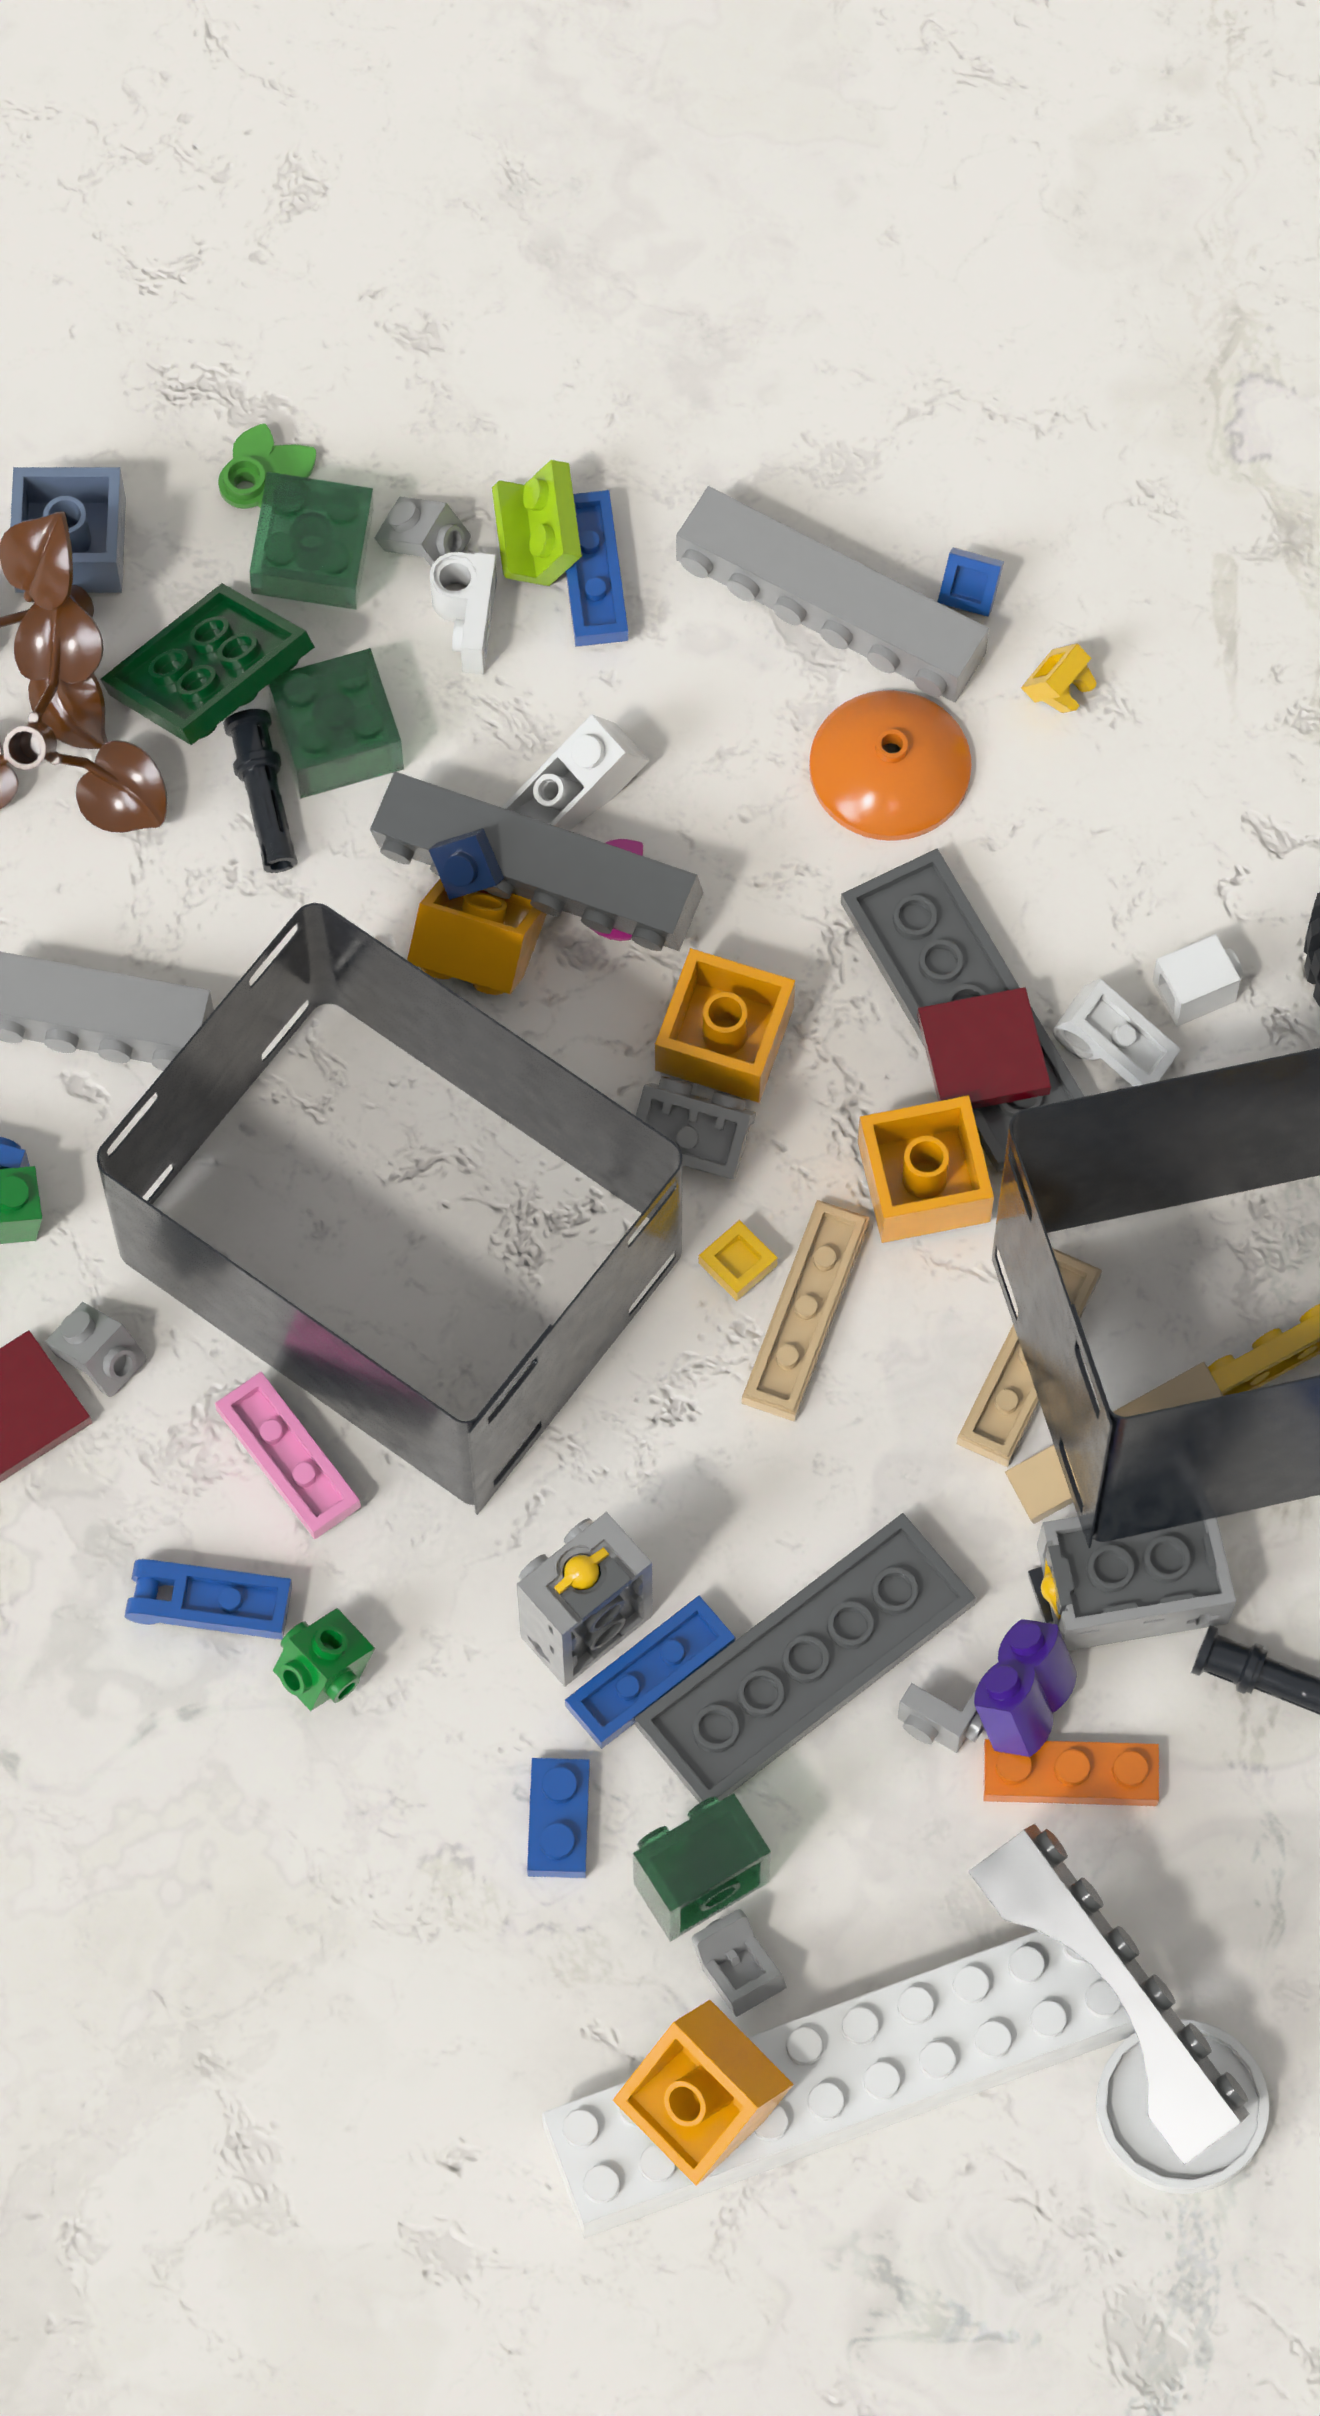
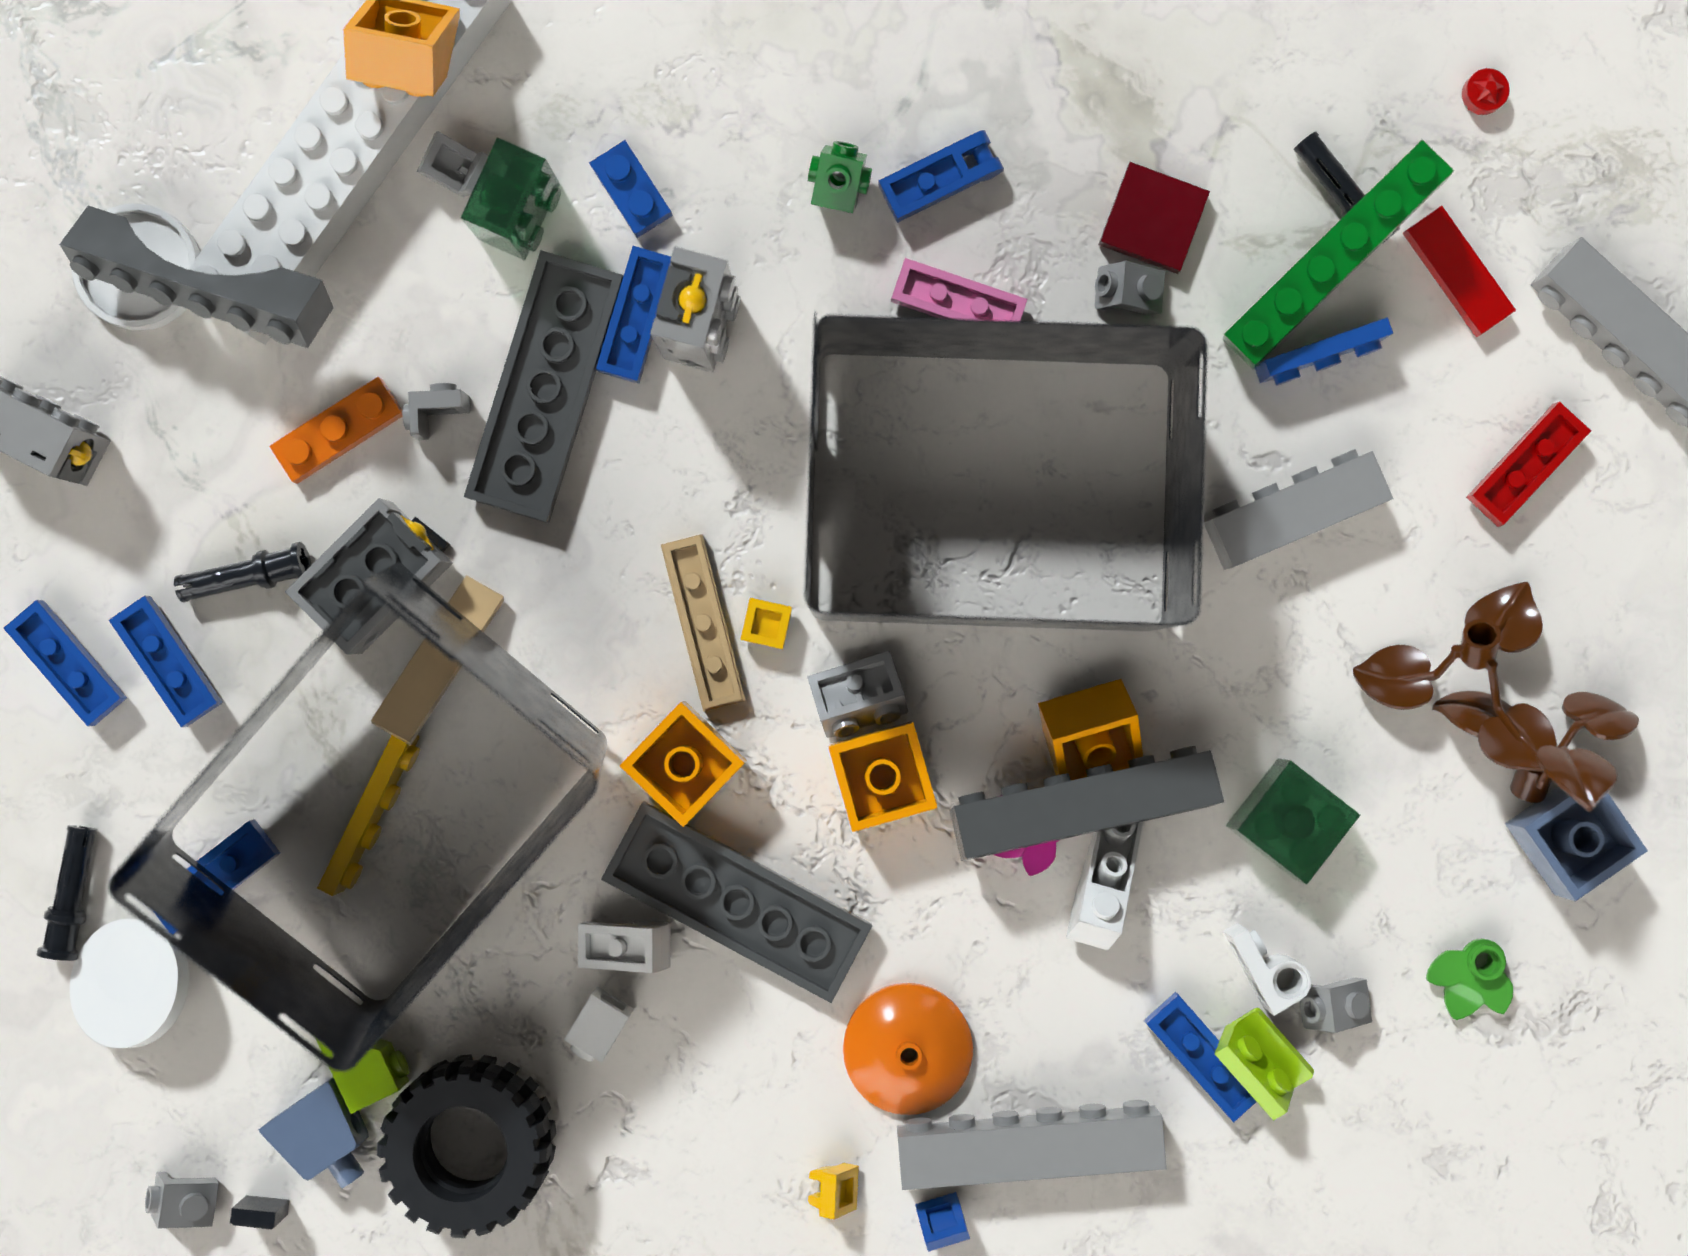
camera: 145 degrees right, 20 degrees up
(207, 663) = (1407, 799): dark green plate -> none
(258, 769) = (1319, 755): black pin -> none
(311, 540) = (1406, 943): clear green brick -> none
(466, 864) = (1127, 764): dark blue plate -> none
(984, 1049) = (701, 873): dark red tile -> none
(1008, 1393) = (537, 650): tan tile -> none
(1025, 1687) = (390, 465): dark purple brick -> none

